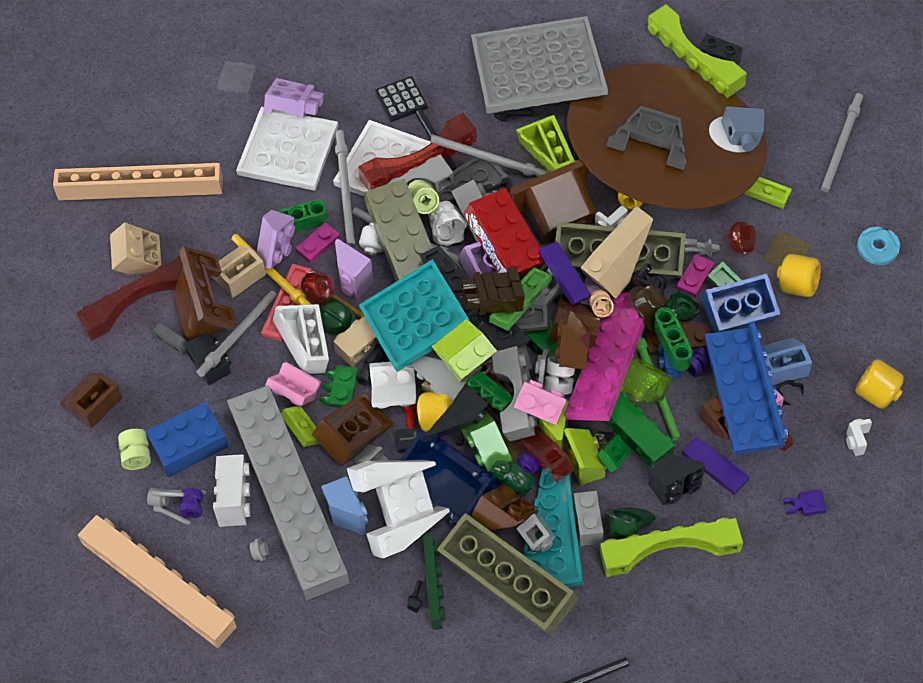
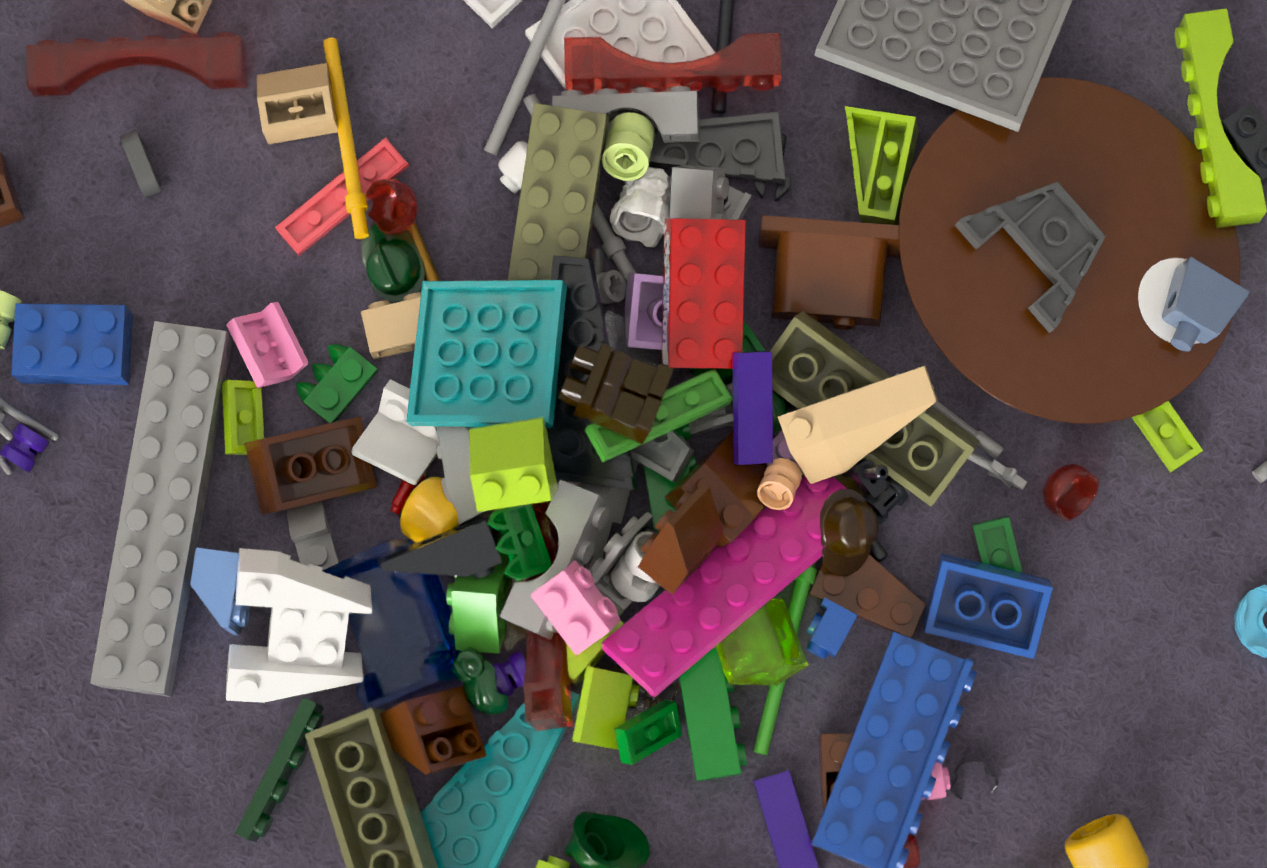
camera: 30 degrees right, 20 degrees up
(195, 297) = (200, 125): reddish brown windscreen -> none
(199, 349) = (175, 228): black brick -> none
(215, 357) = (171, 243): light grey bar -> none
(231, 490) = (87, 462): white wedge -> none
(259, 549) = (75, 576): light grey plate -> none
(275, 238) = (374, 89): lavender slope -> none
(303, 335) = (325, 276): white wedge -> none
(307, 215) = (423, 54): green beam -> none
(317, 243) = (444, 122): dark pink plate -> none
(354, 270) = (454, 209): lavender slope -> none
(376, 357) = (399, 373): black pin -> none
(405, 438) = (379, 525): black tile -> none
(413, 602) = (237, 781): black hand -> none
(527, 169) = (826, 178): light grey bar -> none
(530, 530) = (458, 793): light grey brick -> none
(588, 518) = (550, 806): light grey brick -> none
(613, 220) = (902, 349): white bracket -> none
(673, 348) = (845, 589): green beam -> none
(675, 477) = (707, 822): black slope -> none
(683, 305) = (902, 551): dark green hair -> none
(695, 275) = (962, 507): dark pink plate -> none
(699, 361) = (875, 649): dark purple wheel -> none
(783, 246) = (1127, 548): clear yellow piece -> none
(787, 360) = (994, 726): medium blue slope -> none
(799, 275) = (1111, 606): yellow head -> none

